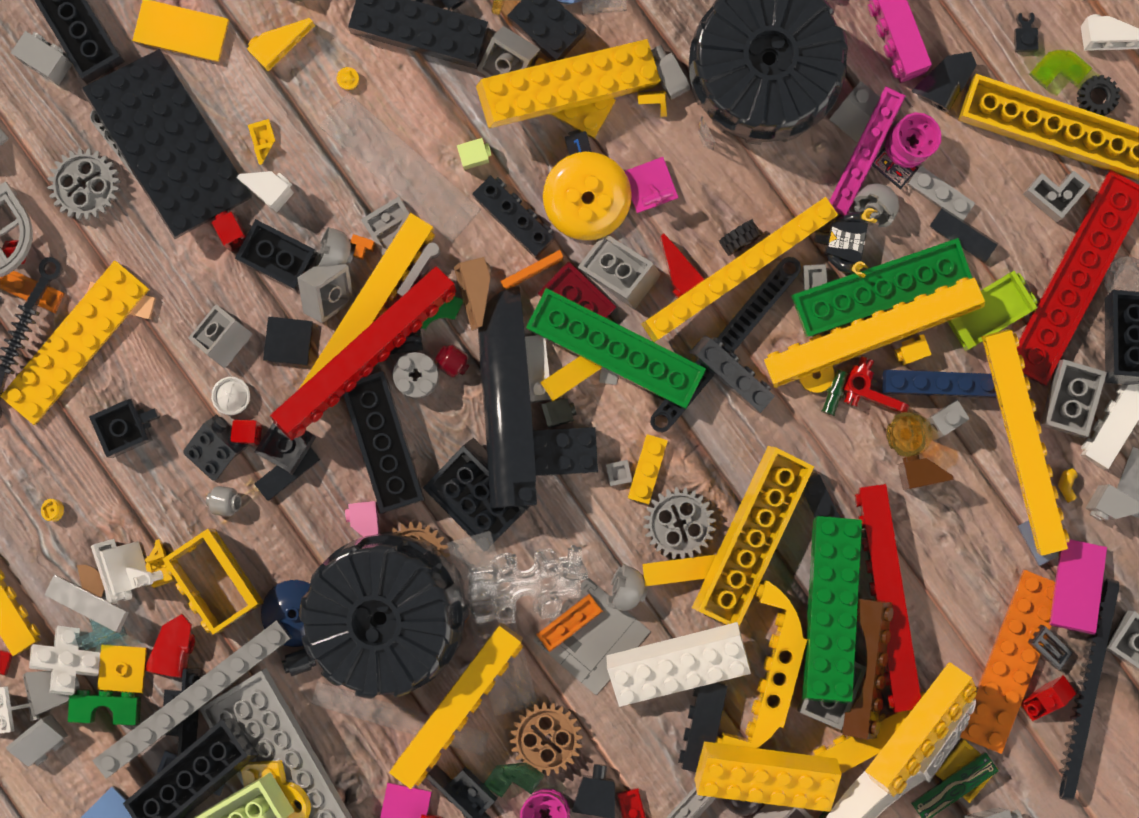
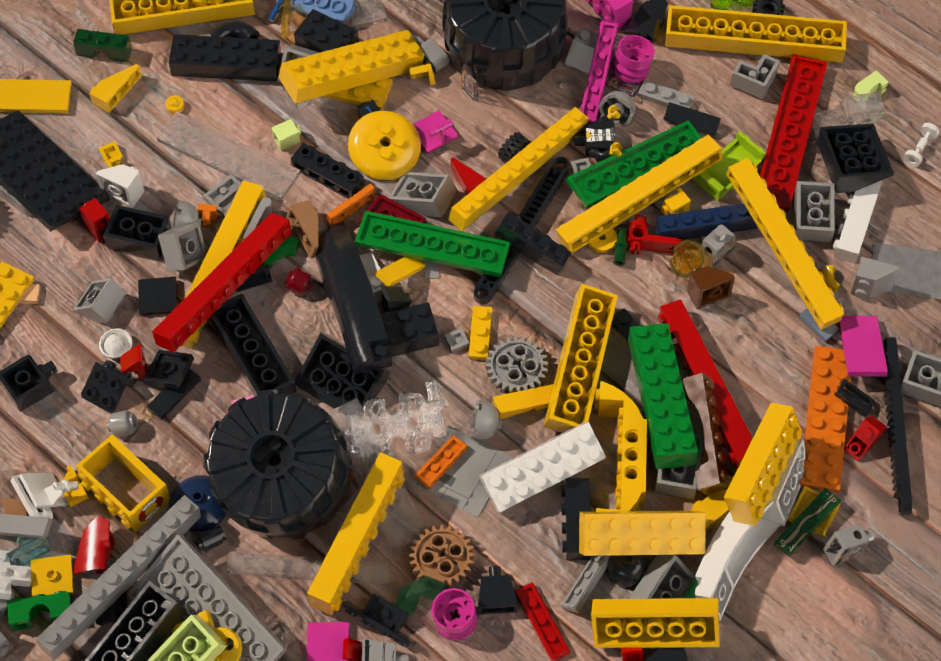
camera: 15 degrees left, 25 degrees down
(424, 385) = (270, 297): light grey brick -> none

